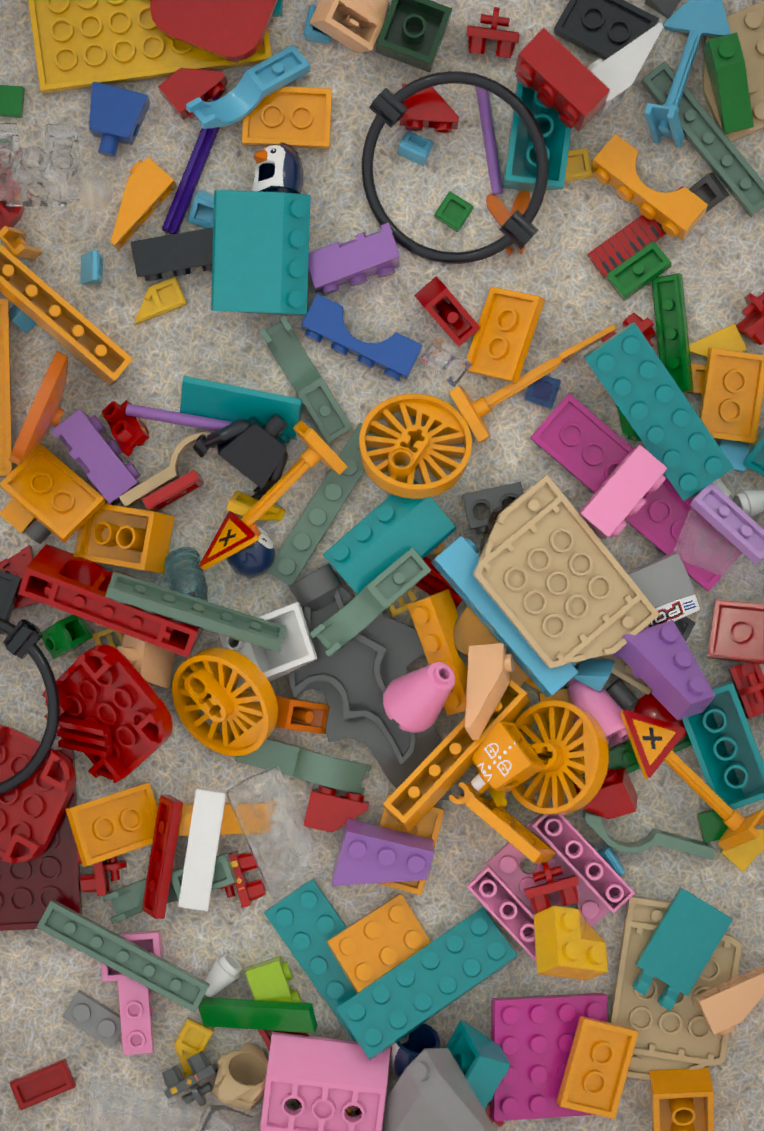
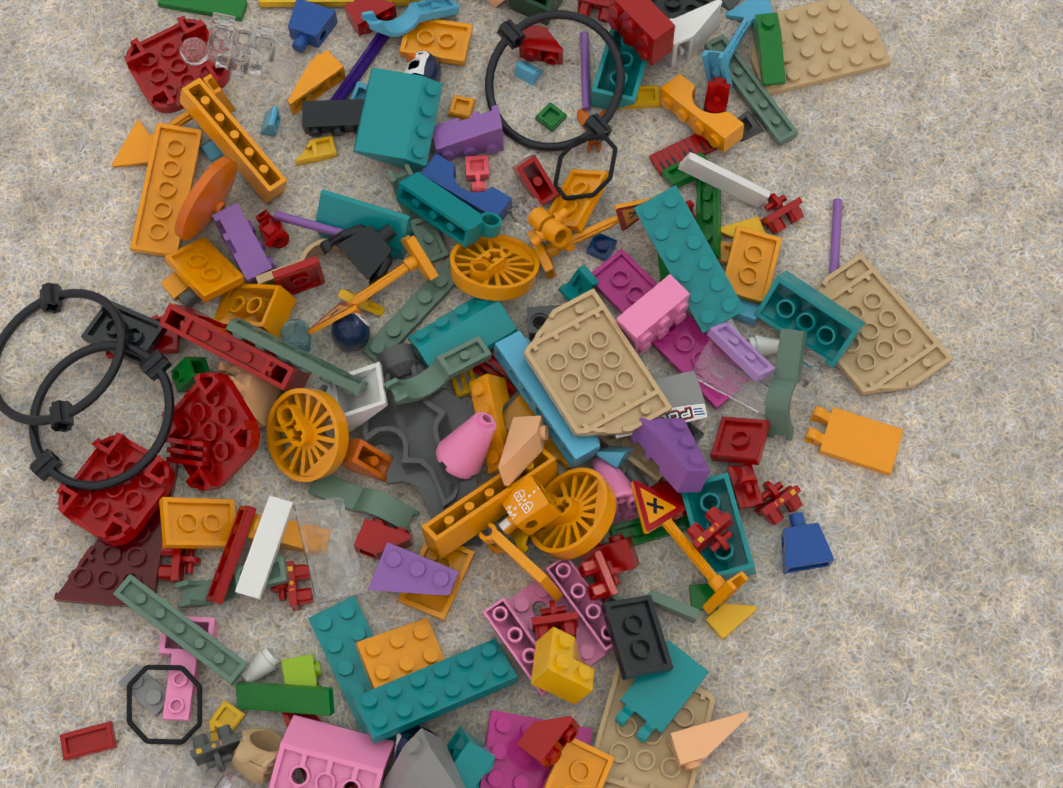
camera: 10 degrees right, 20 degrees down
(152, 1067) = (129, 704): none -> black piece
(335, 212) = (461, 107): none -> light orange tile
(342, 377) = (446, 211): none -> teal hinge
(370, 303) = (477, 169): none -> coral plate
(479, 389) = (550, 228): none -> light orange pin
(522, 454) = (580, 283): none -> teal bracket
(540, 320) = (567, 149): none -> black piece
(562, 1031) = (547, 739): none -> red slope
(603, 829) = (604, 576): none -> red hips
(648, 897) = (636, 637): none -> black plate
(667, 164) = (717, 96): none -> red hips
(689, 286) = (724, 180): none -> white tile
(712, 771) = (703, 538): none -> red hips

